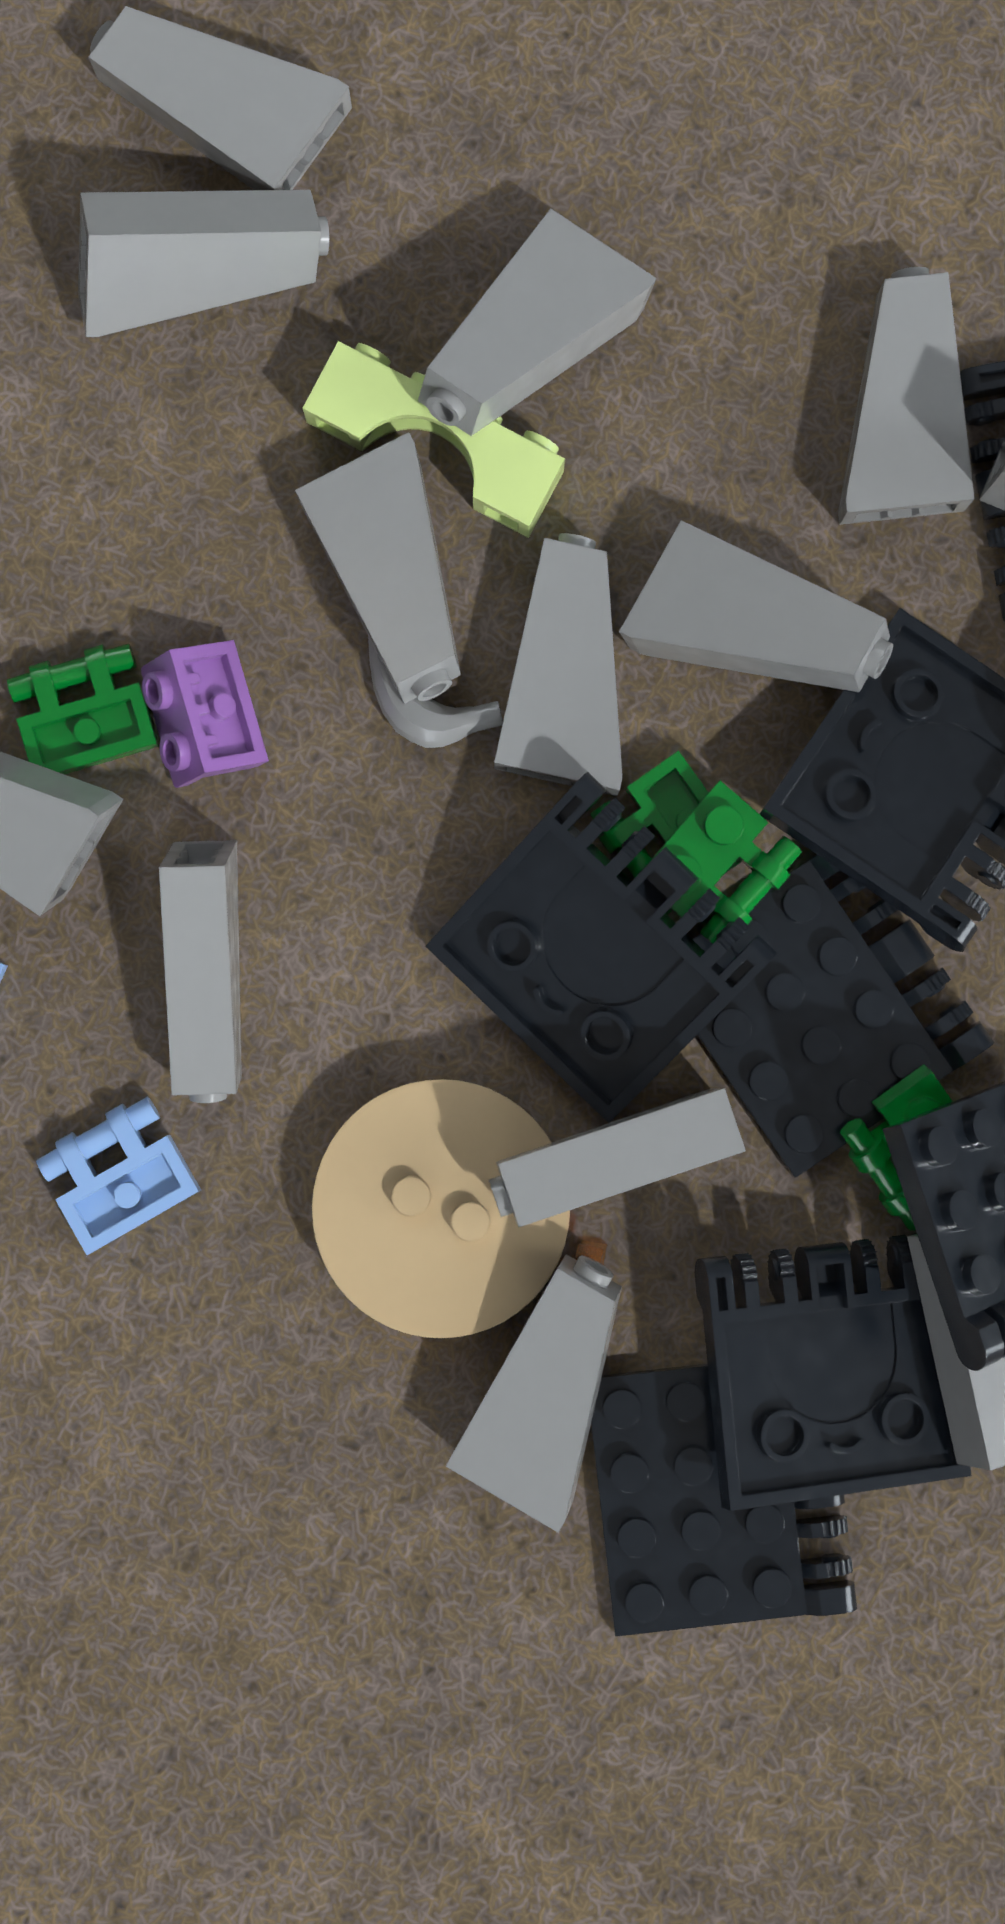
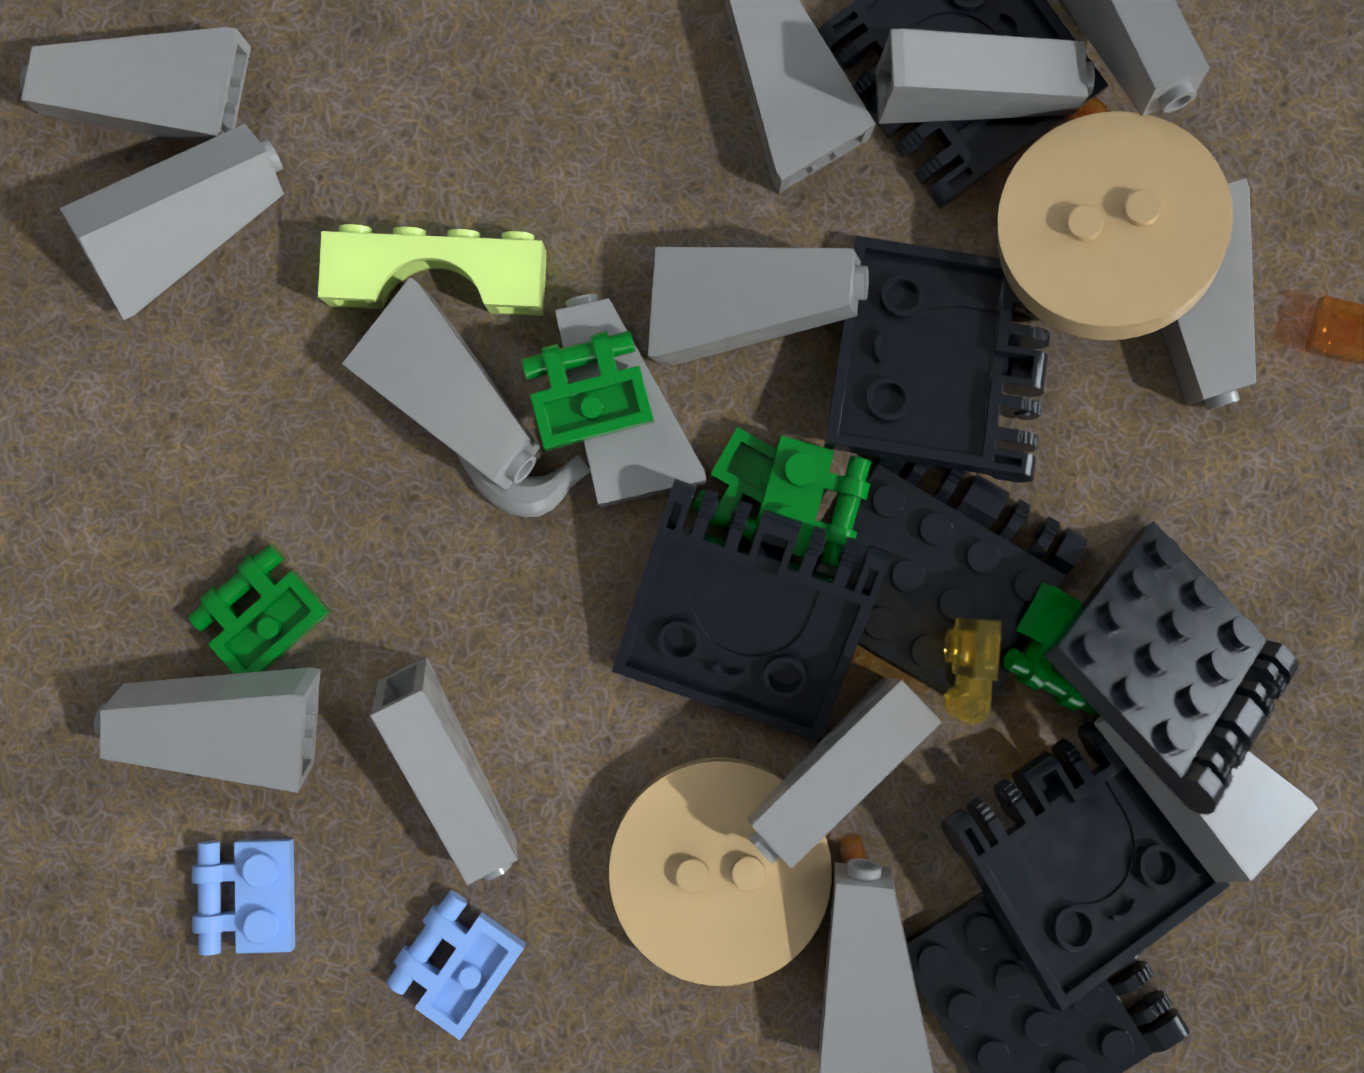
camera: 25 degrees left, 0 degrees up
(202, 712) = (352, 570): medium lavender bracket -> none
(533, 323) = (467, 146): light grey slope -> none
(534, 655) = (589, 406): none -> green plate
(812, 1098) = (974, 660): none -> clear yellow plate

